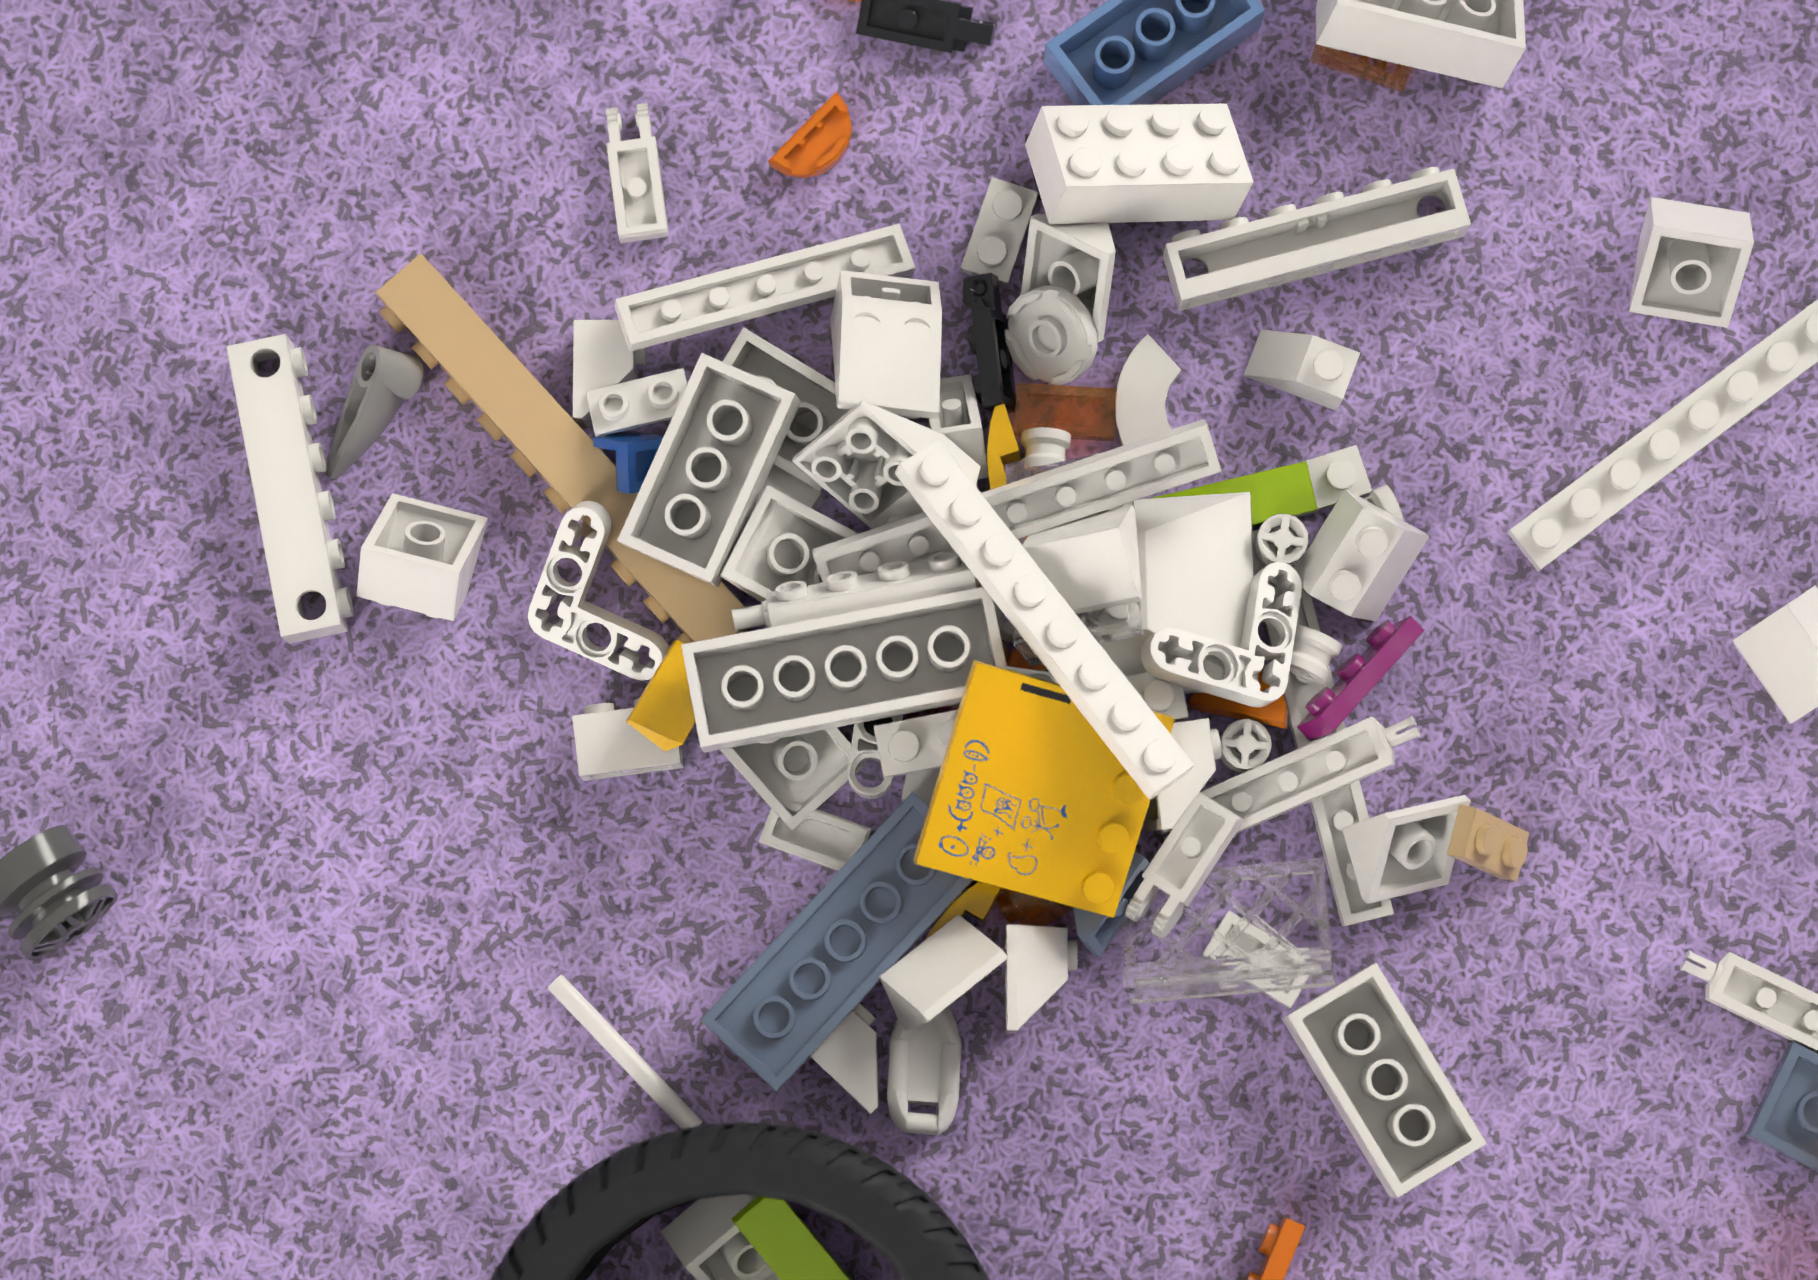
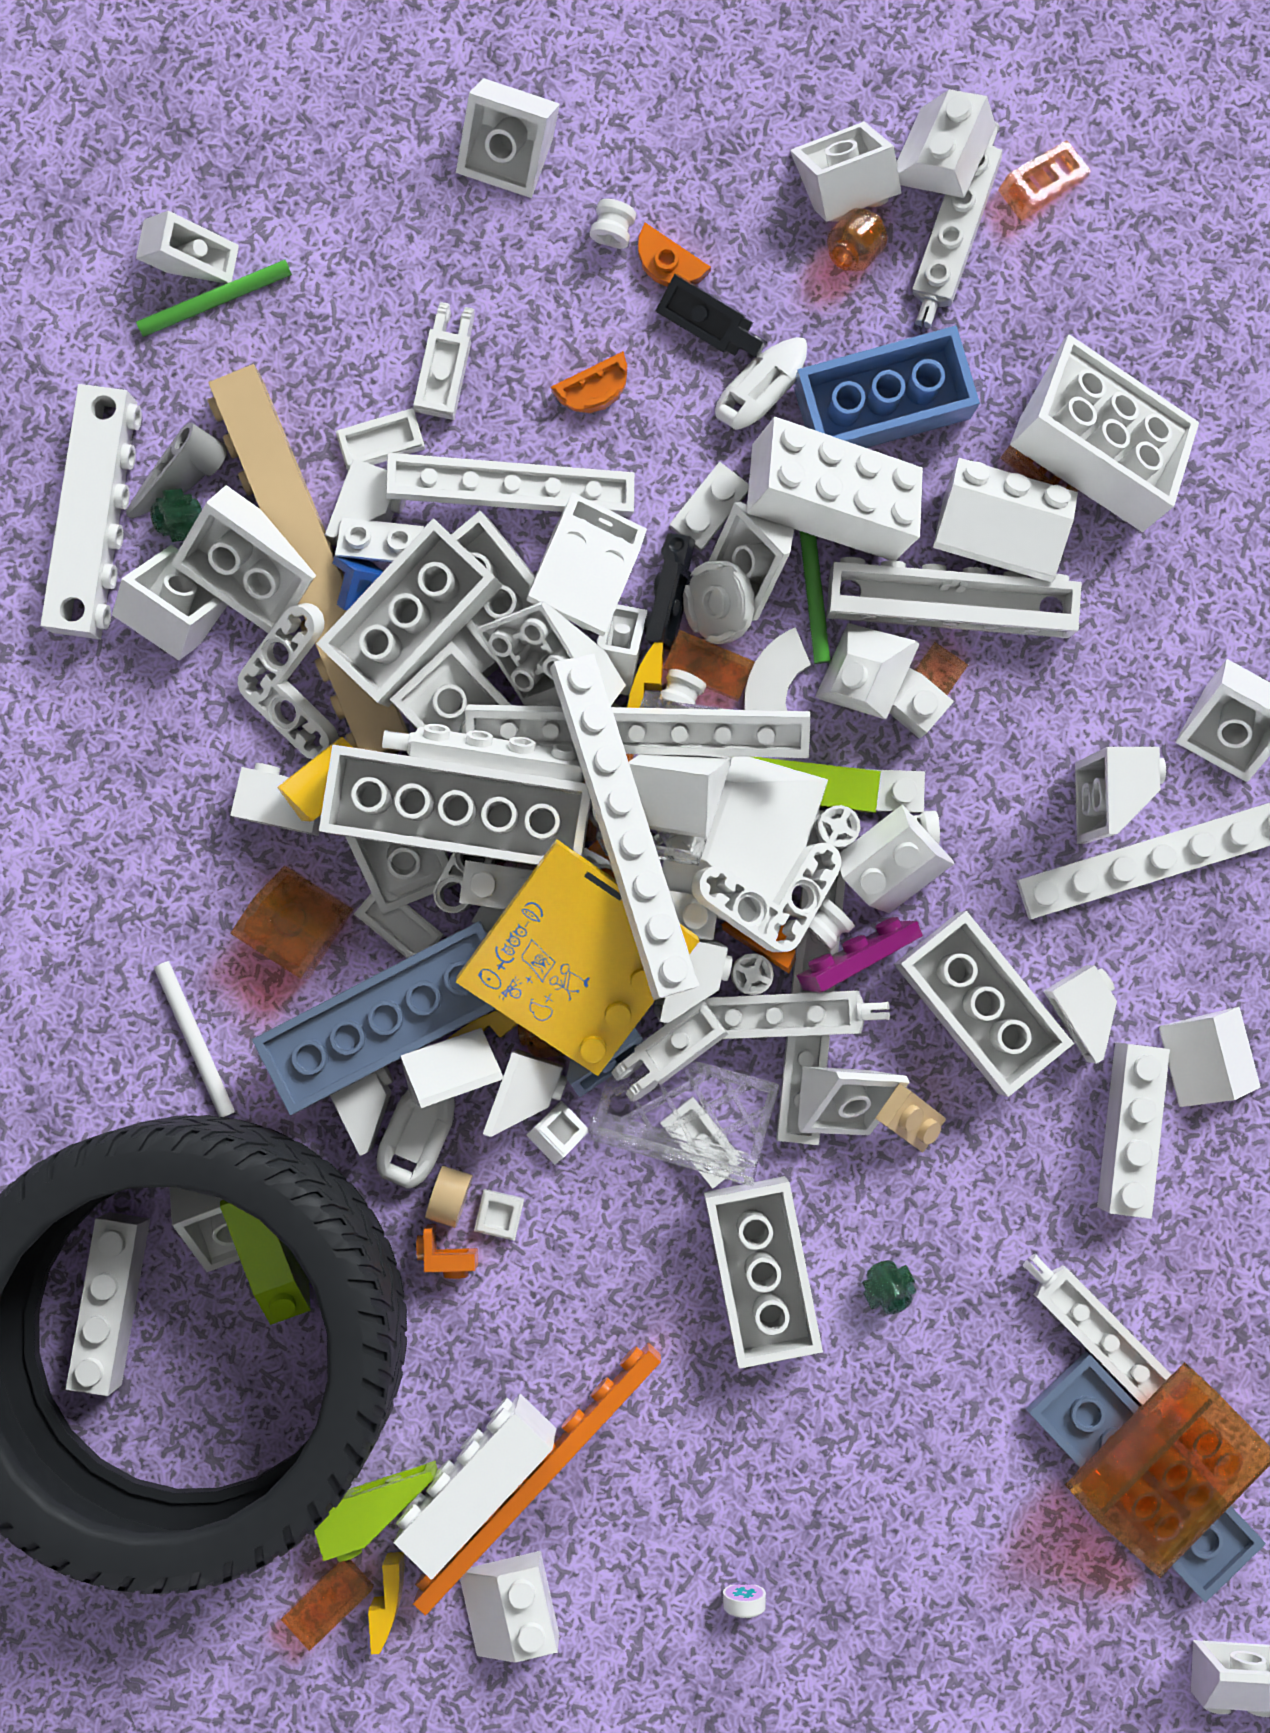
camera: 15 degrees right, 5 degrees up
(291, 150) = (186, 249): none -> white slope
(341, 194) = (214, 298): none -> bright green bar
(390, 456) = (175, 514): none -> clear green gear
(493, 480) = (243, 559): none -> white slope
(592, 287) = (378, 437): none -> white tile
(692, 875) = (292, 922): none -> clear orange slope
(990, 1126) = (448, 1196): none -> tan piece
(1008, 72) = (761, 383): none -> white piece
(1022, 1202) = (452, 1262): none -> orange bracket
(1054, 1129) = (499, 1214): none -> white tile
(1087, 1011) = (558, 1132): none -> white slope
(1157, 293) = (815, 598): none -> bright green bar
(1248, 353) = (867, 670): none -> white slope
(1331, 320) = (941, 667): none -> clear orange tile
(1341, 129) = (1005, 519): none -> white slope
(1521, 683) = (983, 1004): none -> white brick
(1535, 1047) = (889, 1287): none -> clear green gear
(1575, 385) = (1114, 789): none -> white slope
(1641, 649) = (1086, 1009): none -> white slope
(1746, 765) = (1133, 1130): none -> white brick

